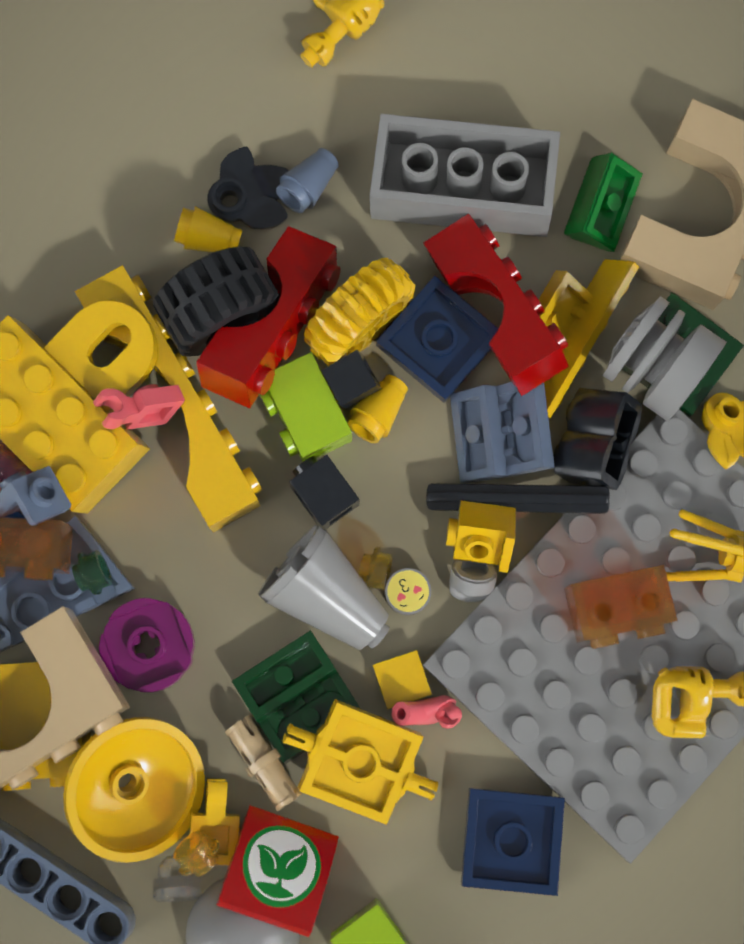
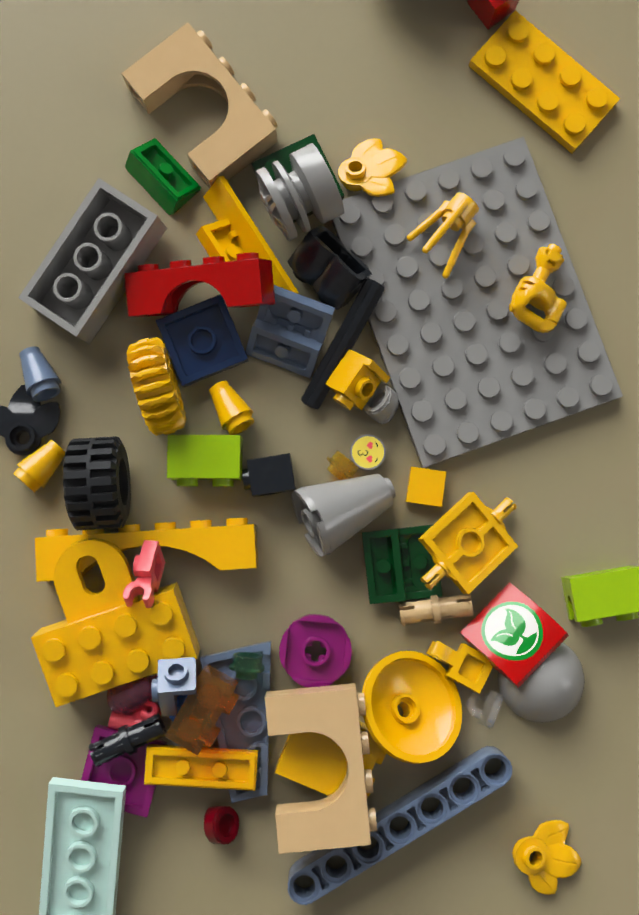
camera: 60 degrees left, 5 degrees up
(196, 854) = (477, 685): clear yellow plate -> none
(244, 359) = (149, 485): red arch -> none
(351, 379) = (201, 416): black piece -> none
(427, 712) = (456, 479): coral arm -> none
(512, 841) = (570, 467): dark blue plate -> none
(620, 605) = (452, 312): clear orange brick -> none

